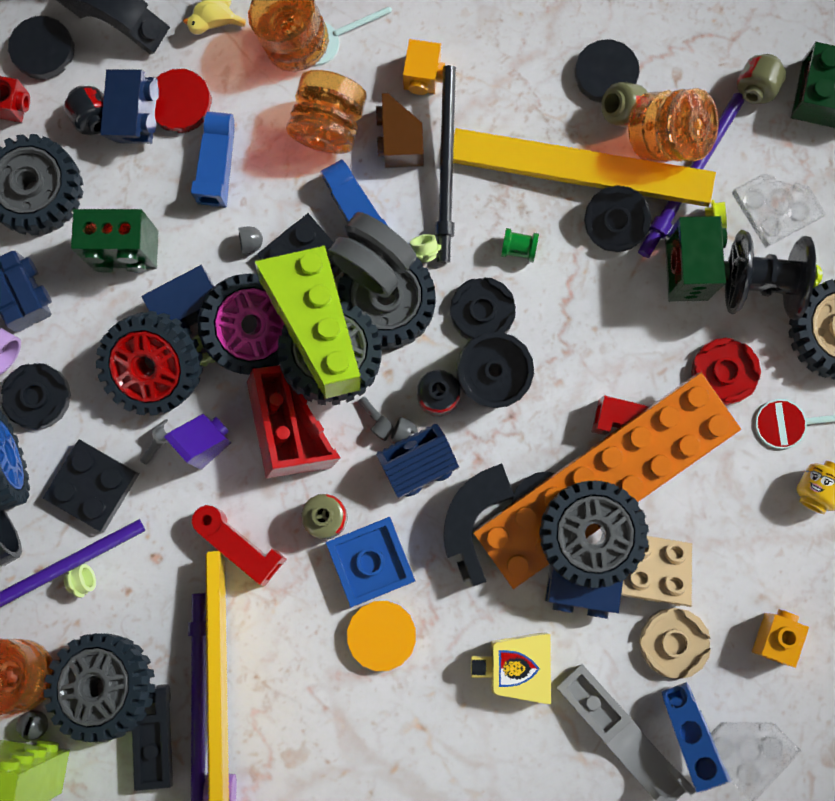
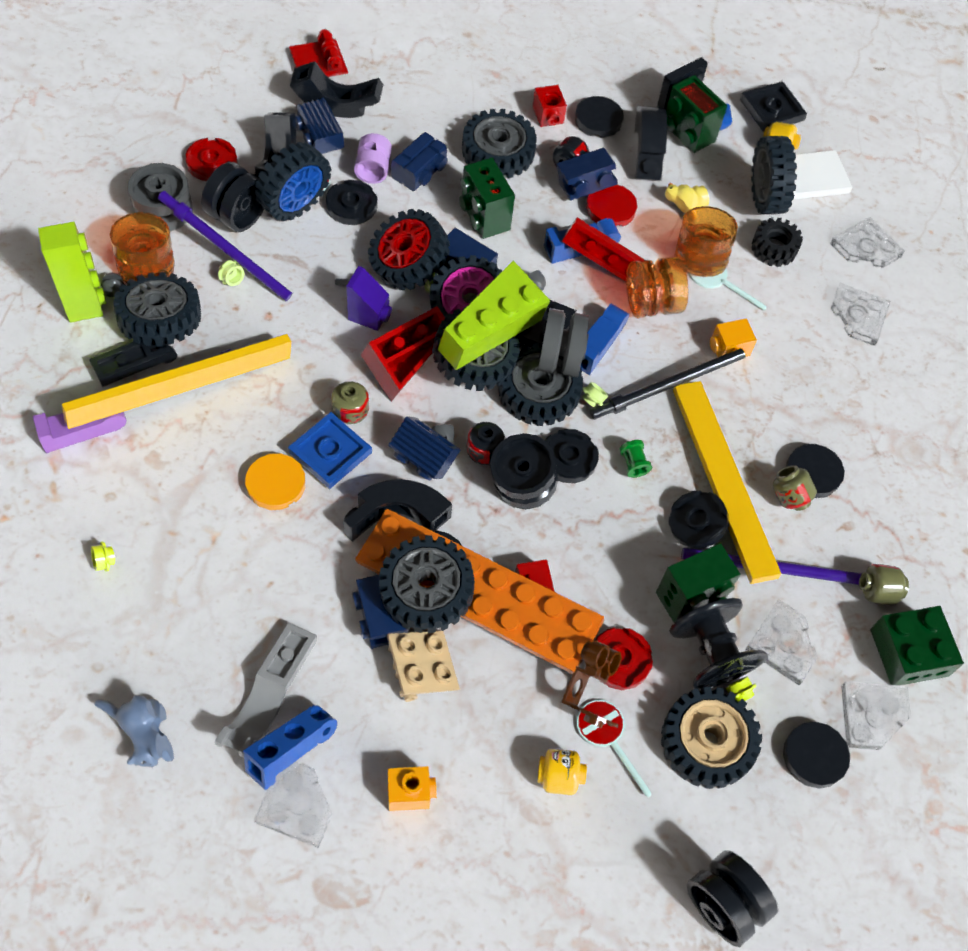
camera: 55 degrees right, 20 degrees down
(91, 486) = (303, 256): black plate -> none
(213, 527) = (294, 373): red leg -> none
(246, 146) = (599, 248): none -> red hinge
(382, 427) = (442, 418): dark grey hand -> none
(401, 136) = (669, 346): reddish brown slope -> none
(518, 667) = (293, 585): light yellow torso -> none
(673, 125) = (783, 512): clear orange wheel -> none
(675, 643) = (367, 706): tan tile -> none
(717, 209) = (749, 596): neon yellow plate -> none
(743, 407) = (600, 664): none -> reddish brown piece

